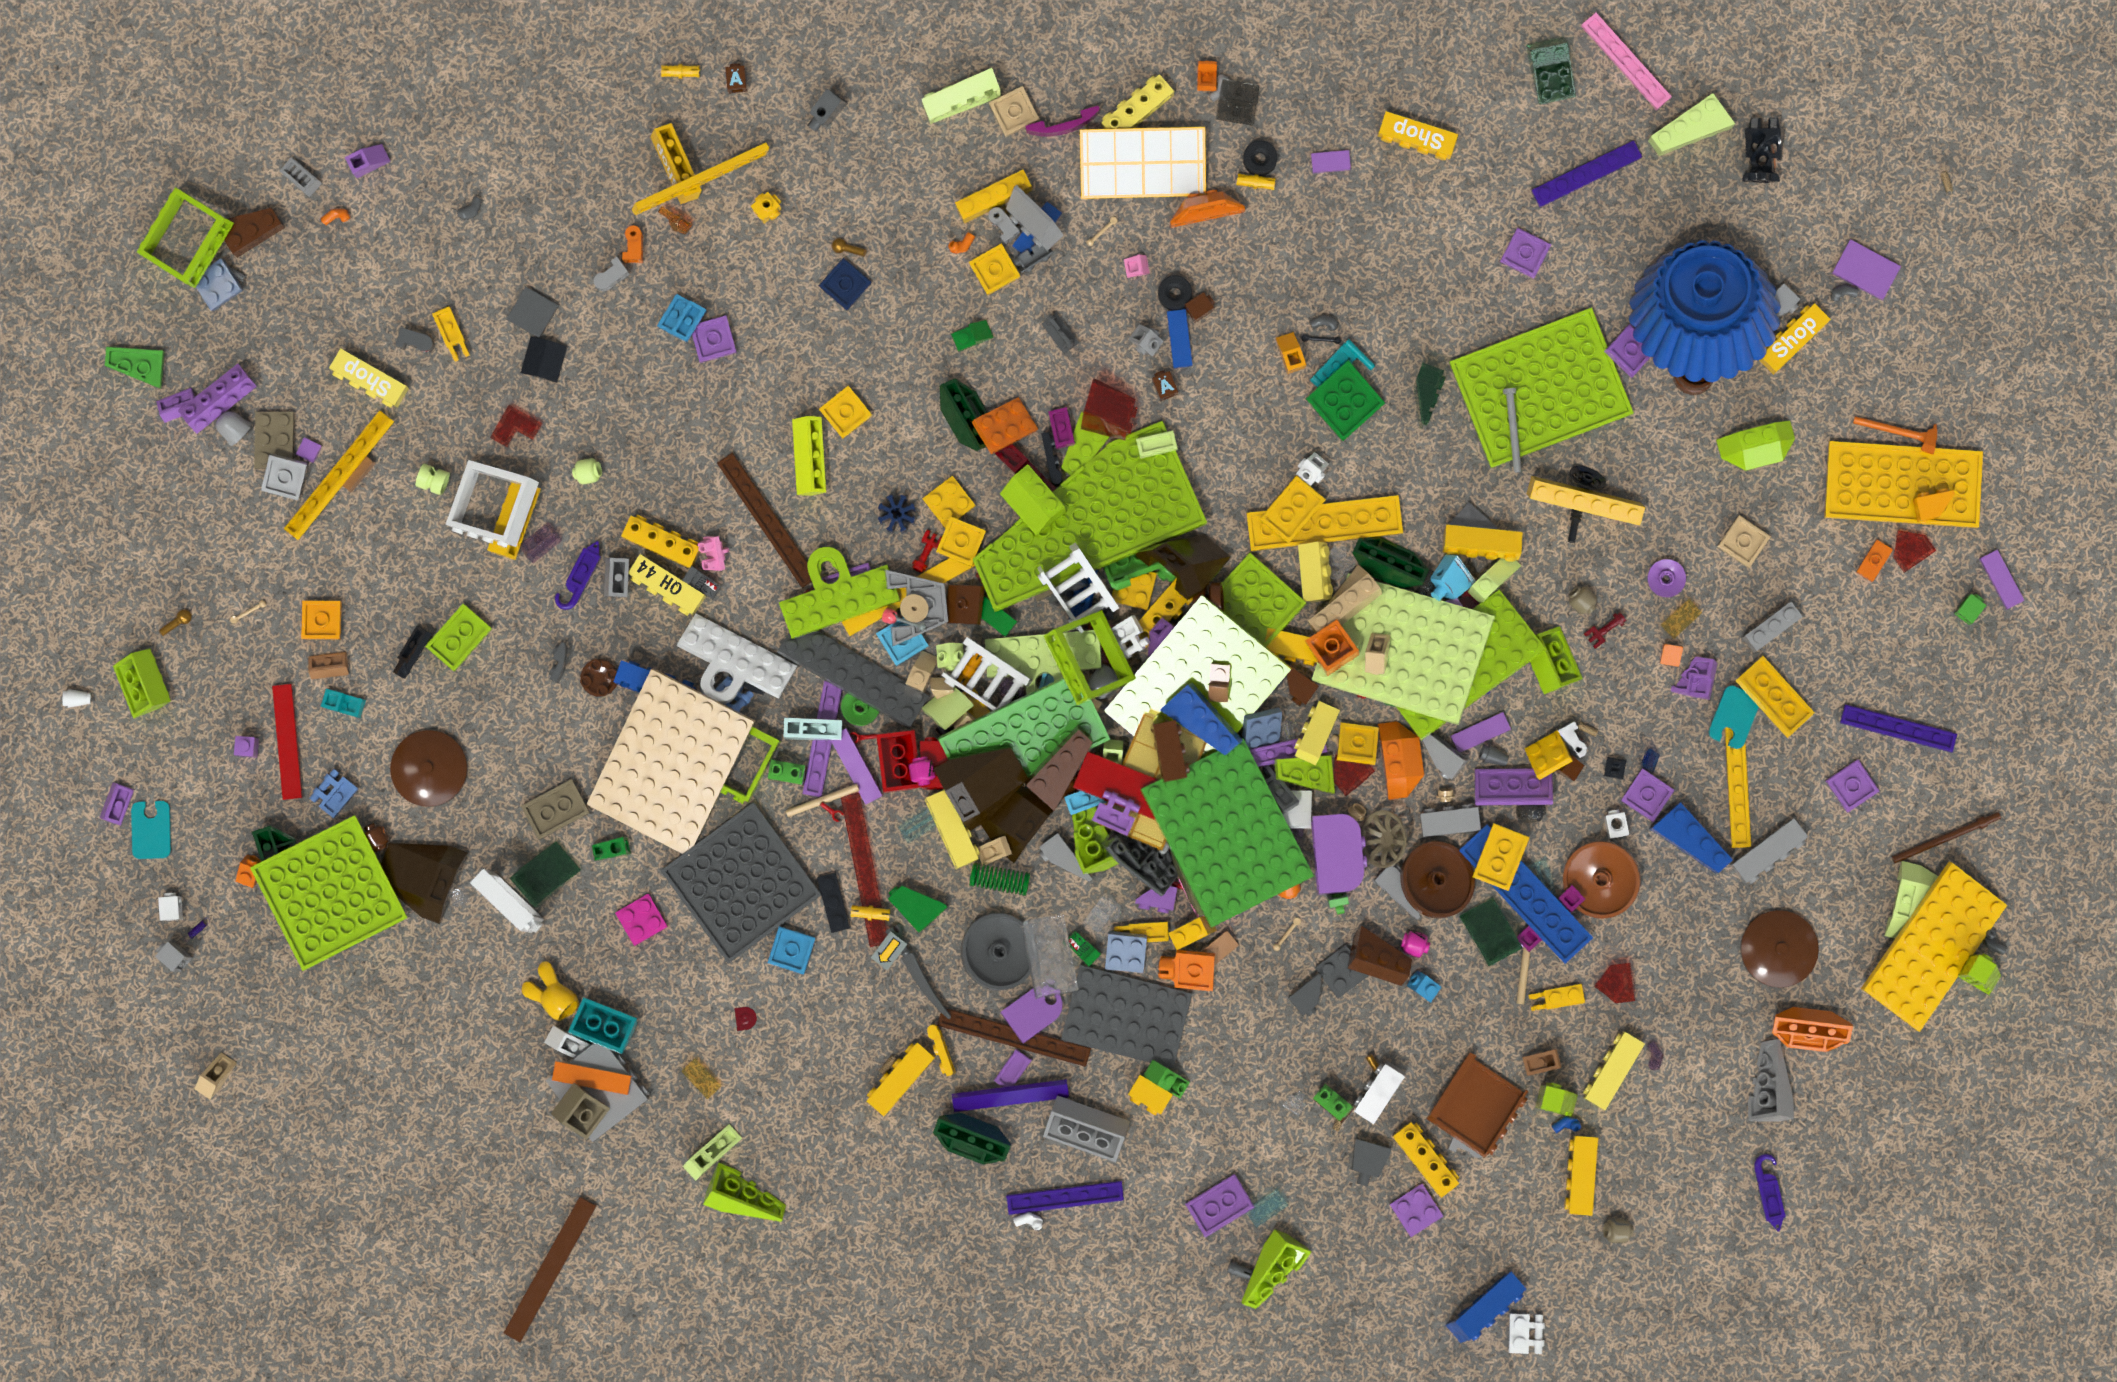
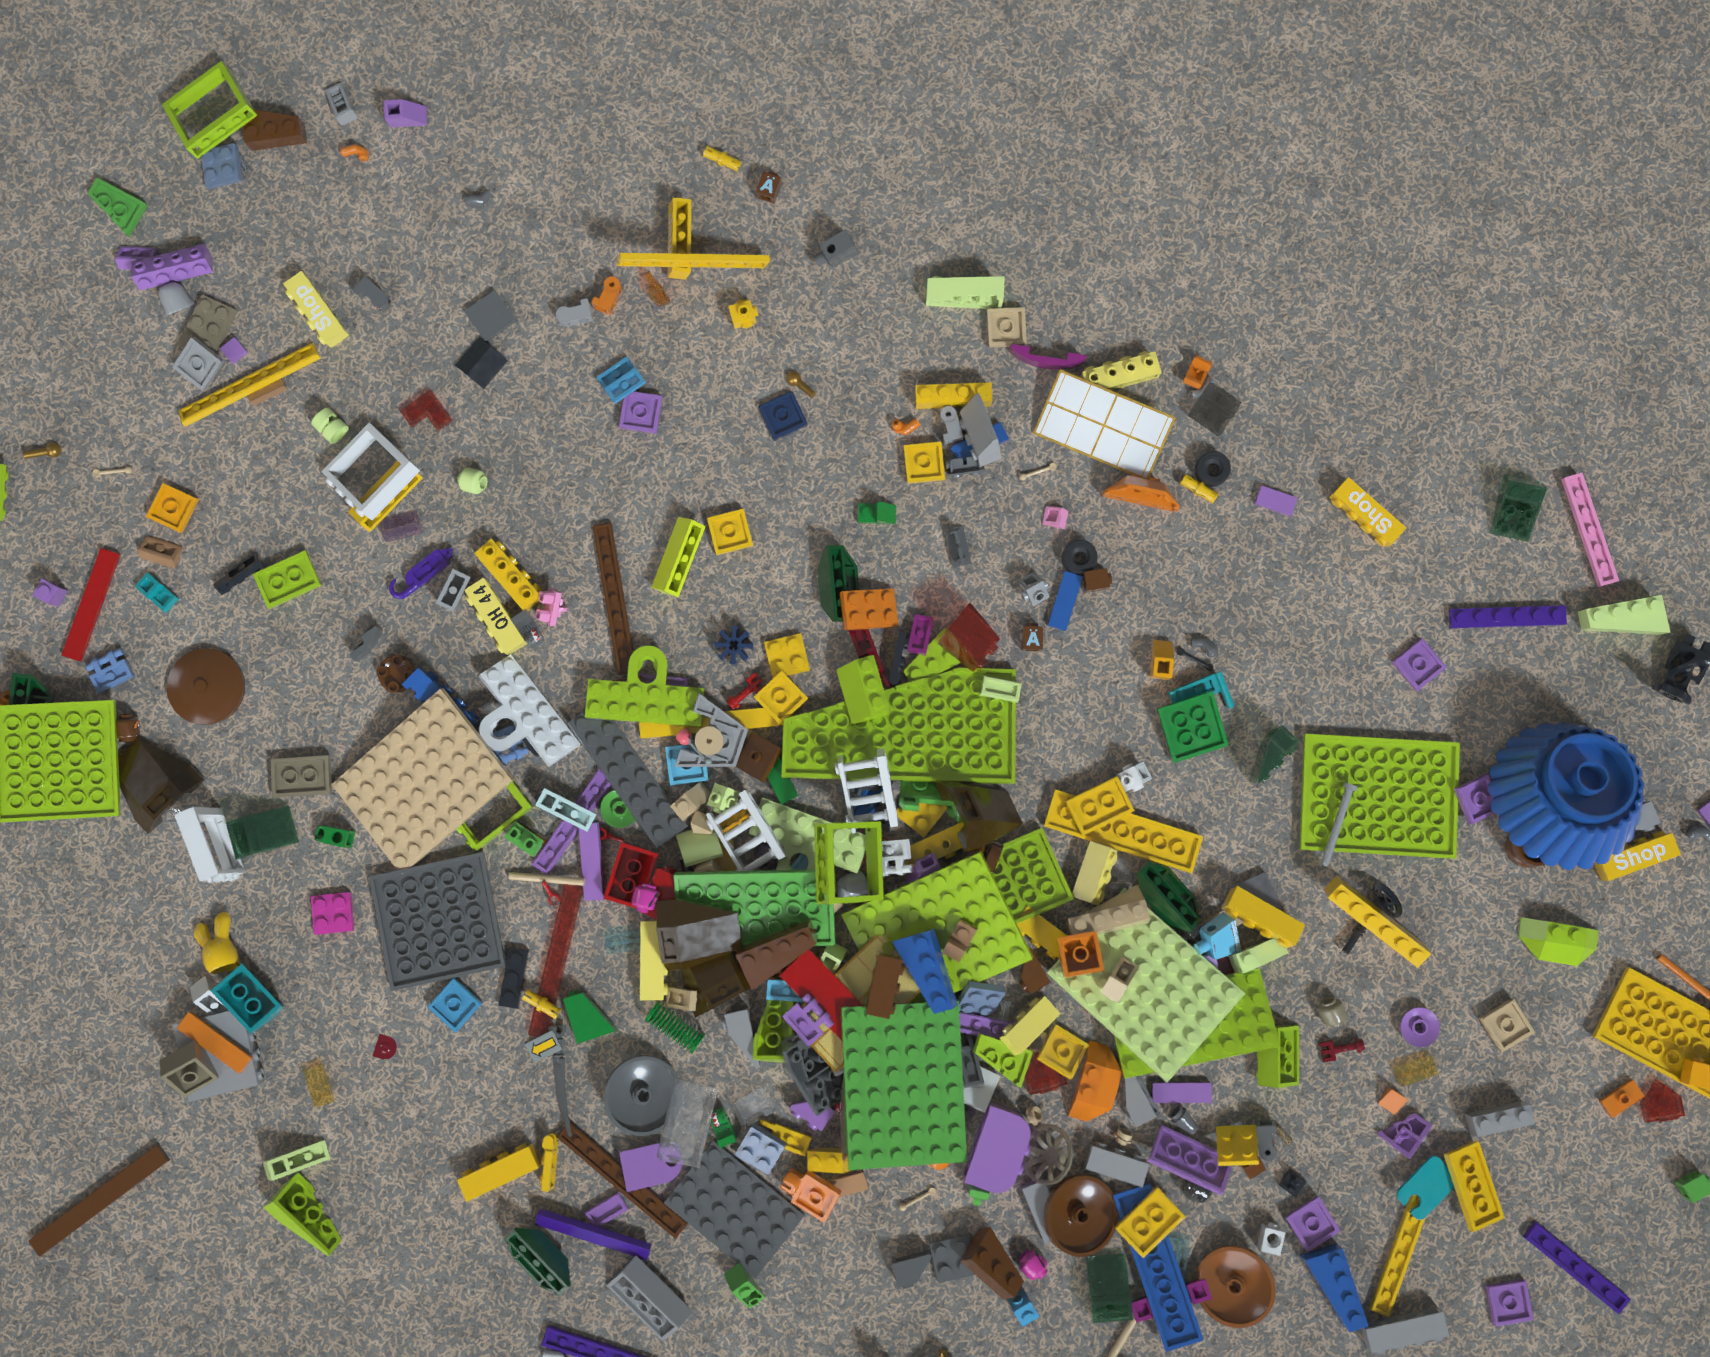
camera: 20 degrees right, 0 degrees up
(450, 331) = (408, 300): yellow hinge -> none
(1150, 1095) = (719, 1293): yellow brick -> none
(1650, 760) = (1328, 1190): clear blue slope -> none

